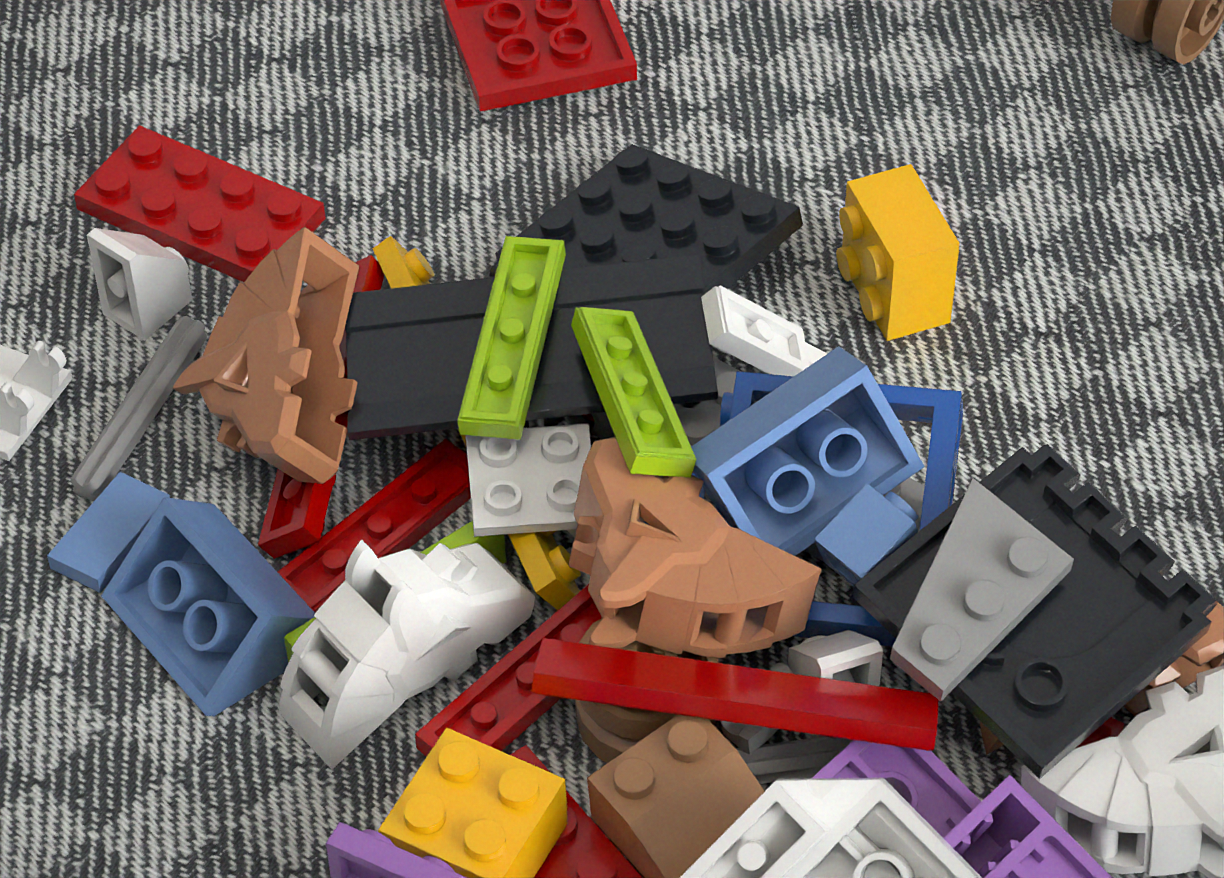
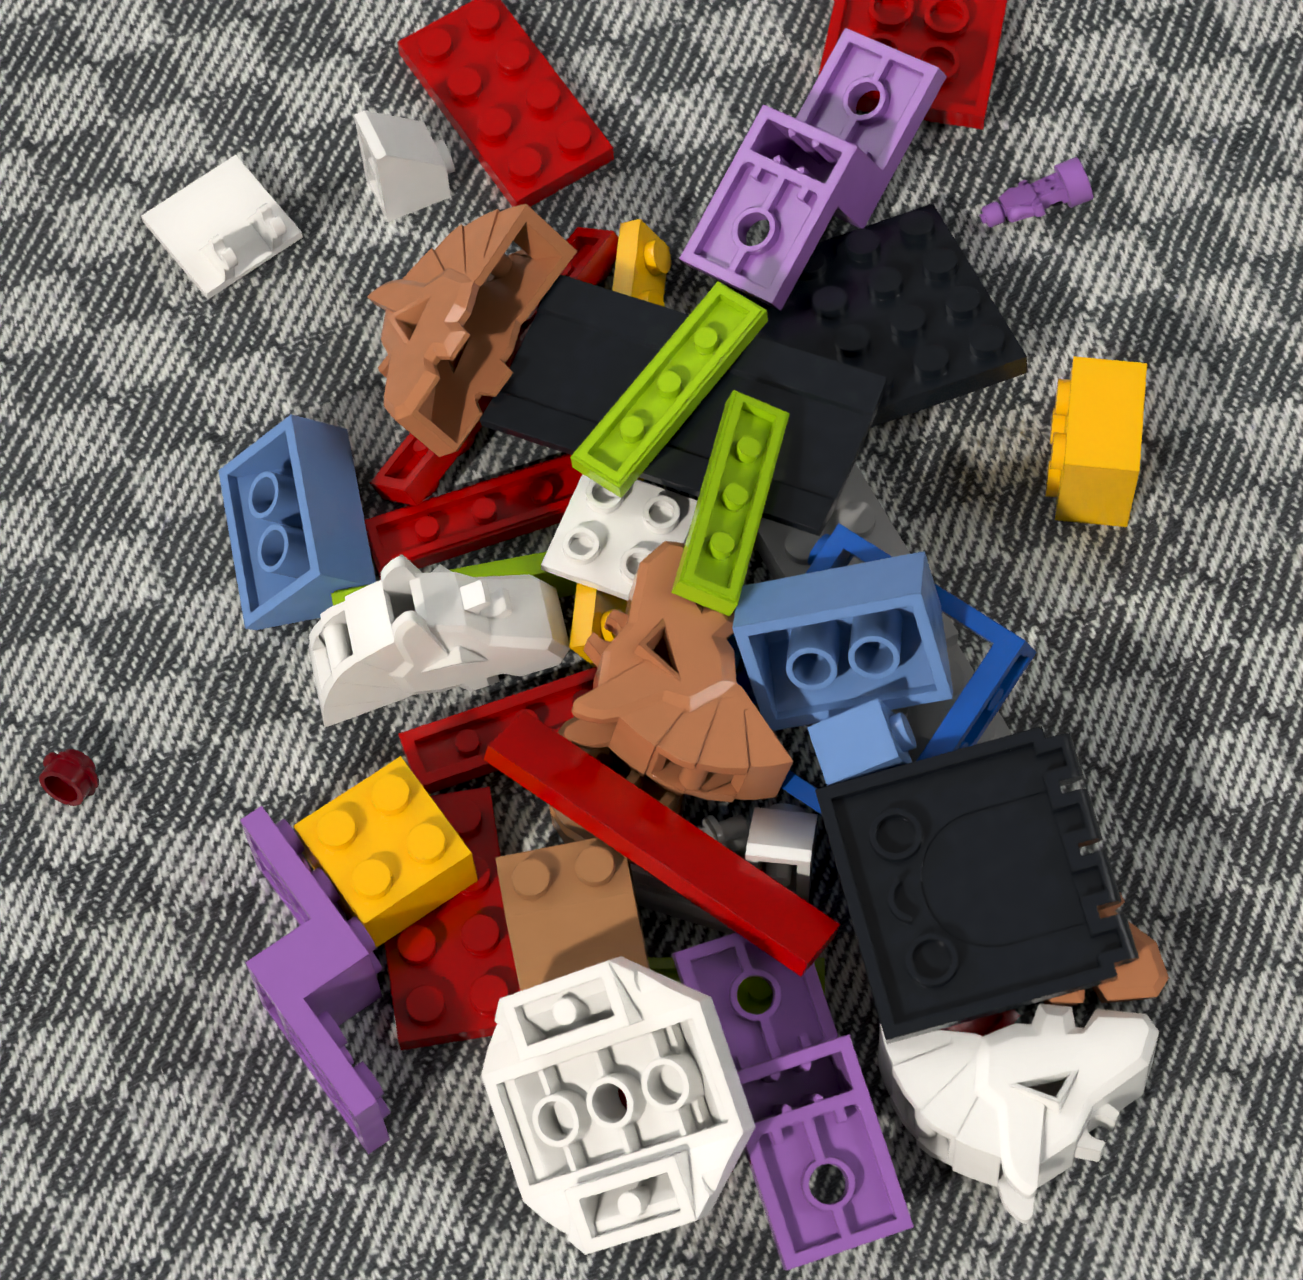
camera: 30 degrees right, 15 degrees up
(105, 532) = (254, 408): medium blue tile -> none
(138, 408) = (342, 294): light grey axle -> none
(519, 139) = (812, 168): none -> medium lavender bracket
(736, 88) = (1028, 200): none -> medium lavender piece
(756, 334) = (912, 486): white hinge -> none
(976, 591) = (915, 848): light grey wing -> none

